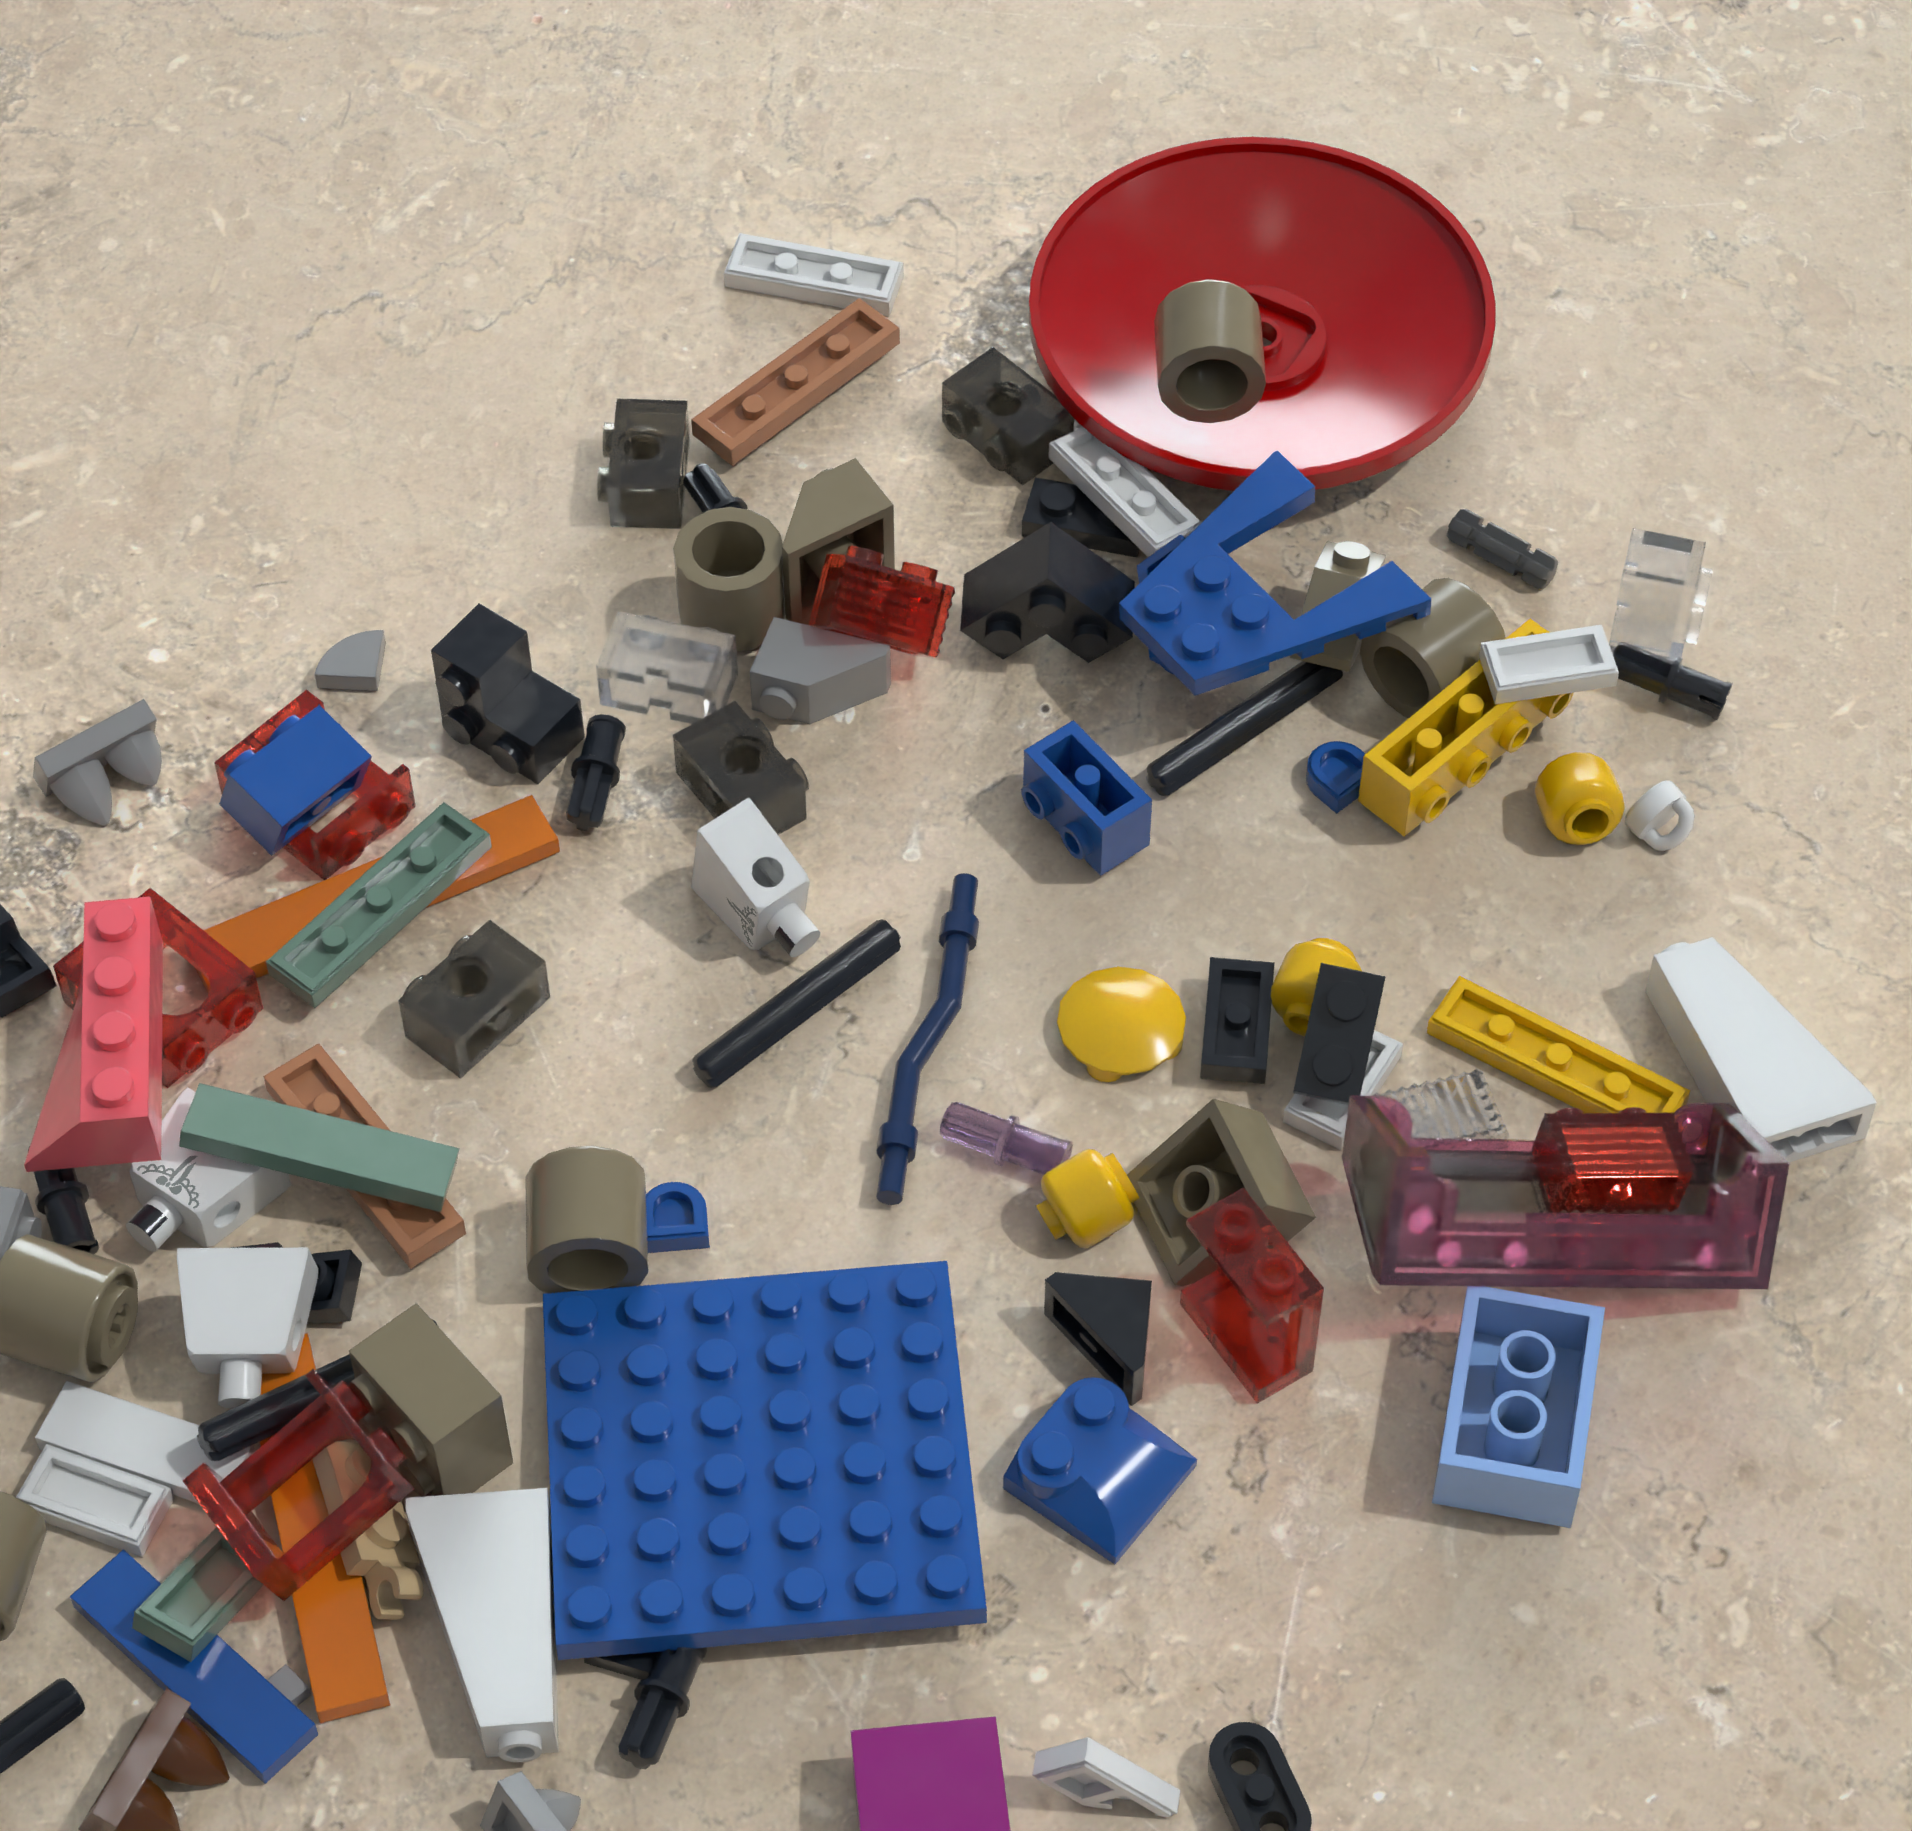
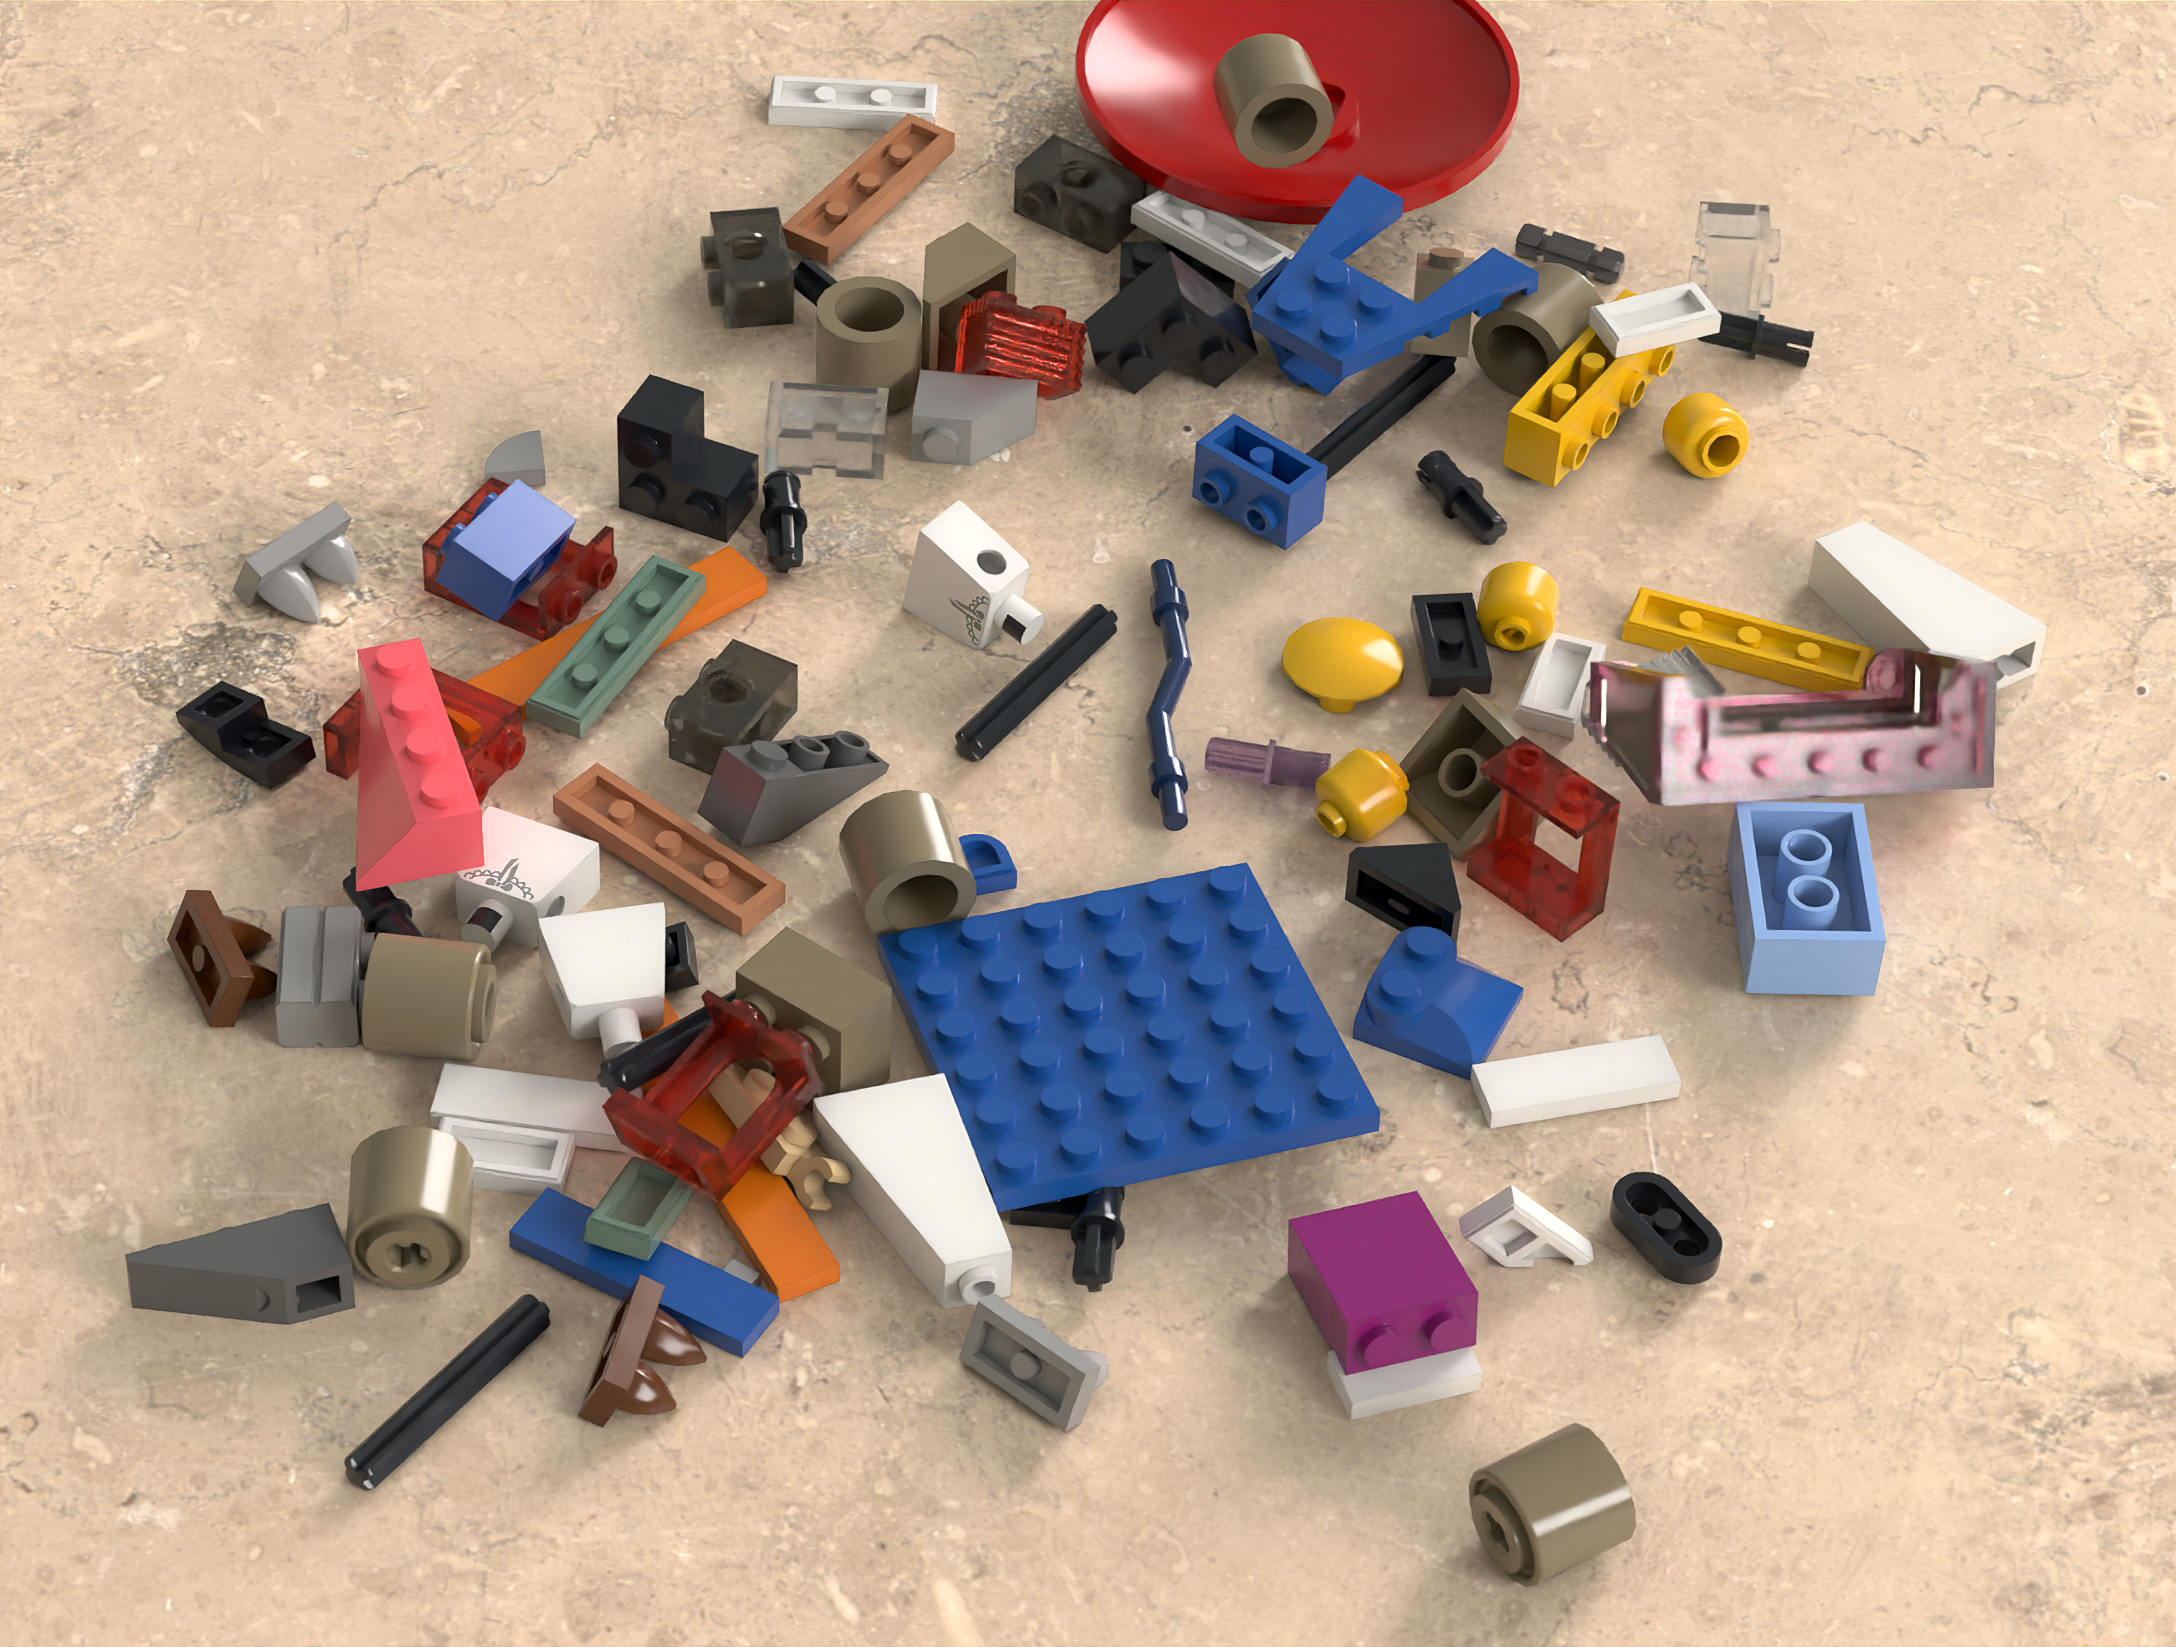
camera: 15 degrees left, 10 degrees down
(319, 1147) = (635, 835): sand green tile -> none
(506, 1093) = (779, 786): none -> dark grey slope
(735, 758) = (910, 490): clear smoke brick -> none
(1218, 1586) = (1575, 1081): none -> white tile
(1301, 837) = (1460, 496): none -> black axle
(1335, 773) = (1476, 446): blue tile -> none
(1339, 1034) = (1554, 633): black plate -> none
(1612, 1160) = (1831, 691): clear red brick -> none
(1655, 810) = (1777, 436): white tile -> none

